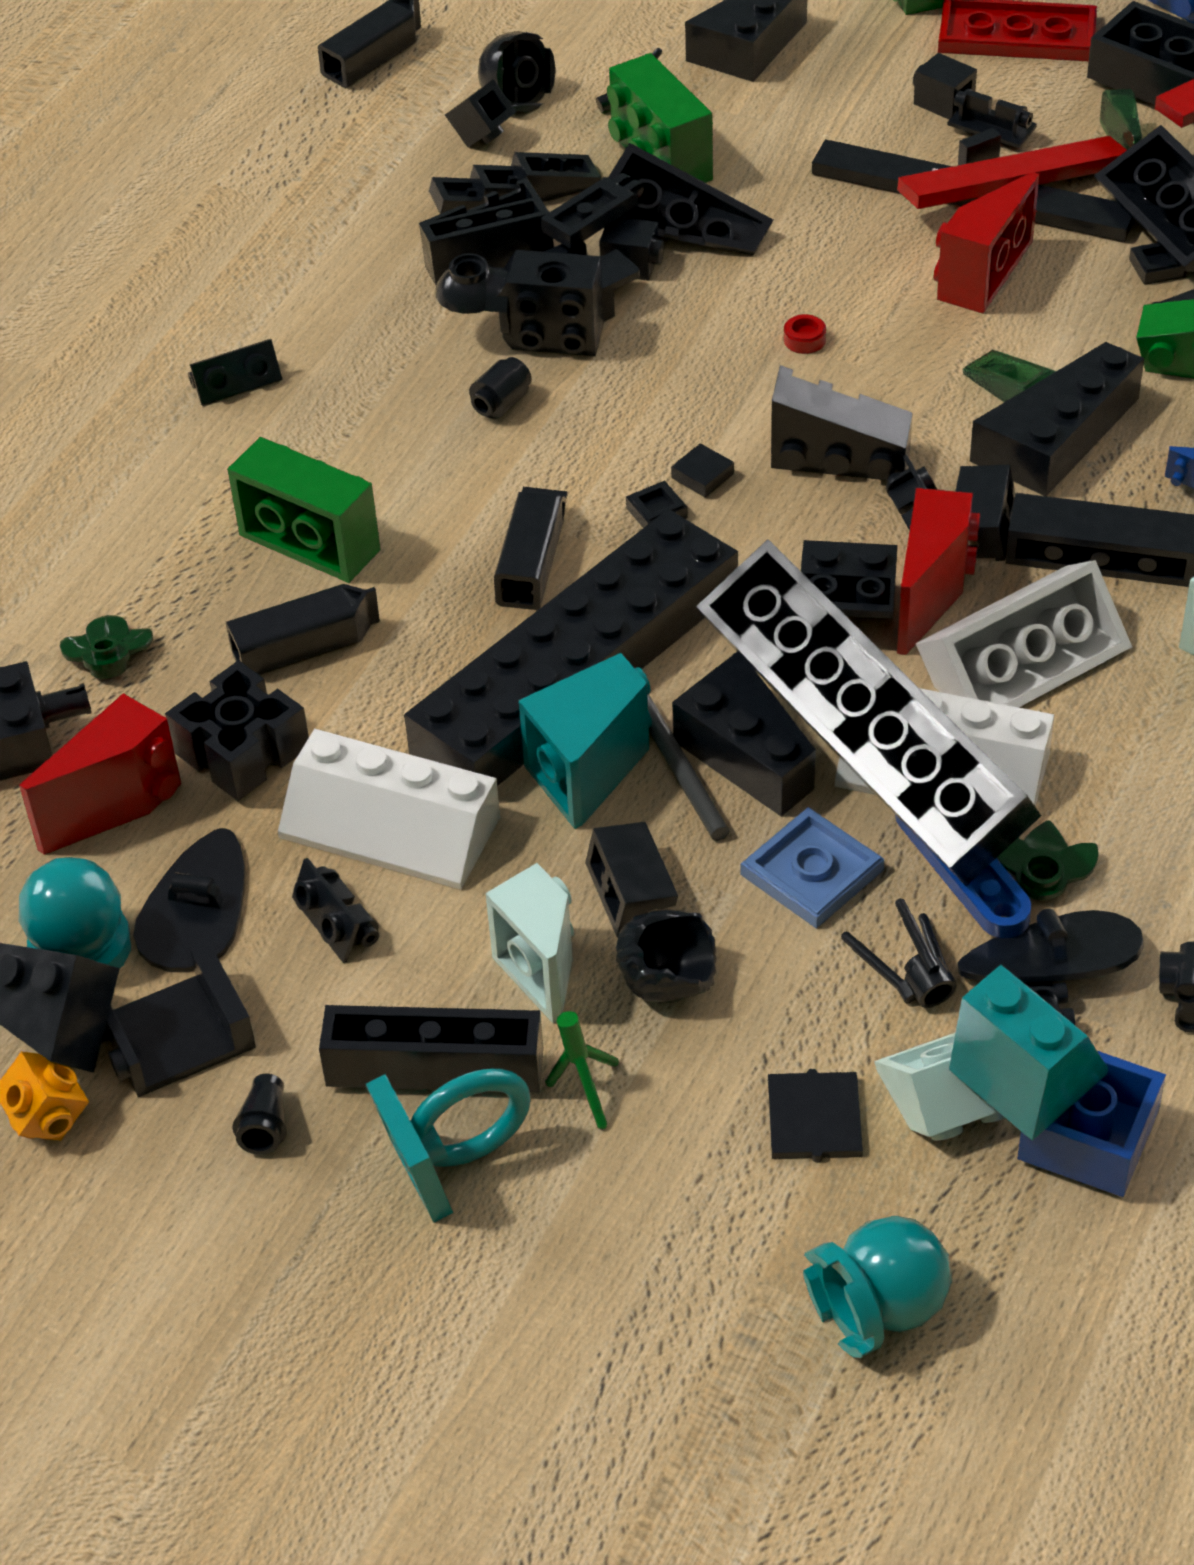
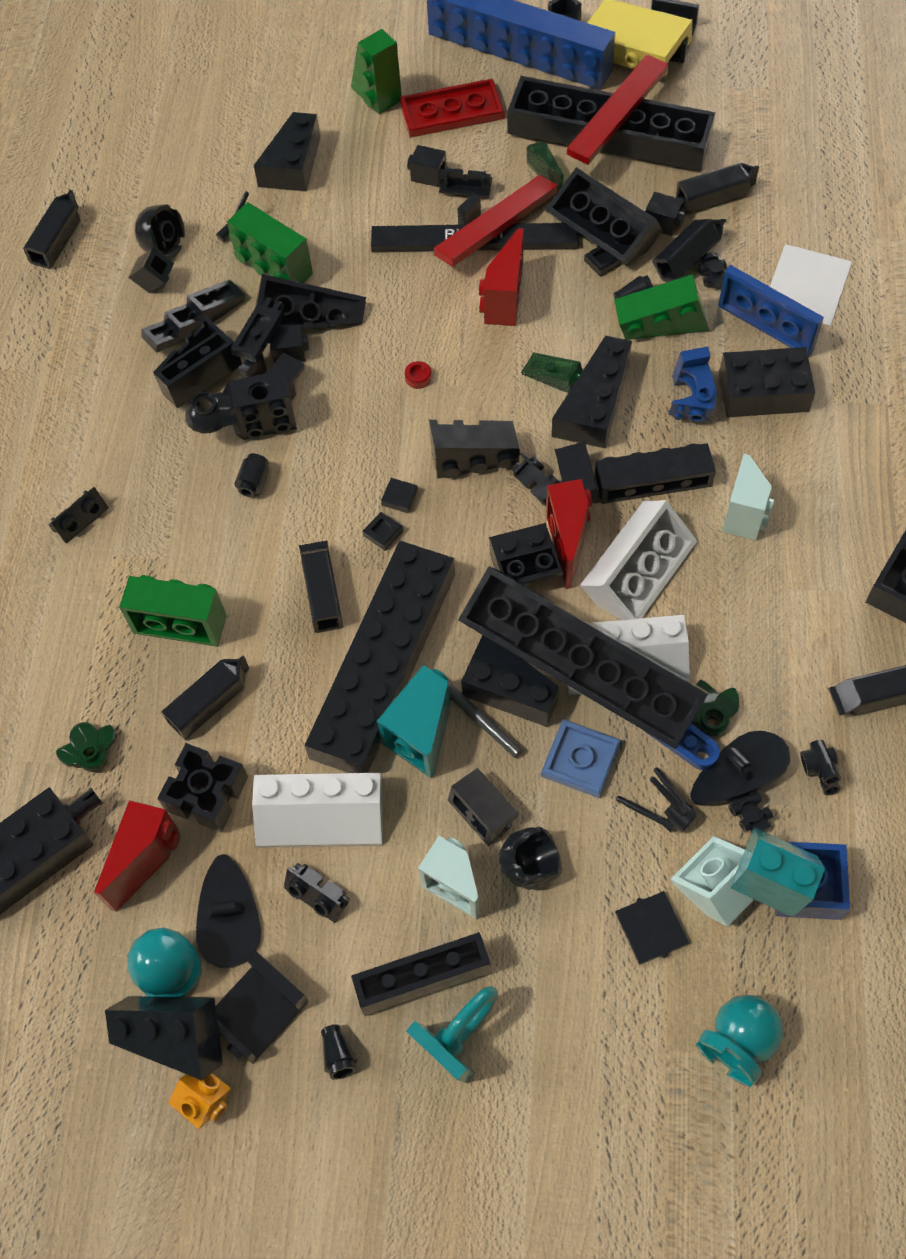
camera: 20 degrees left, 15 degrees up
(576, 1052) = (508, 947): green plant -> none

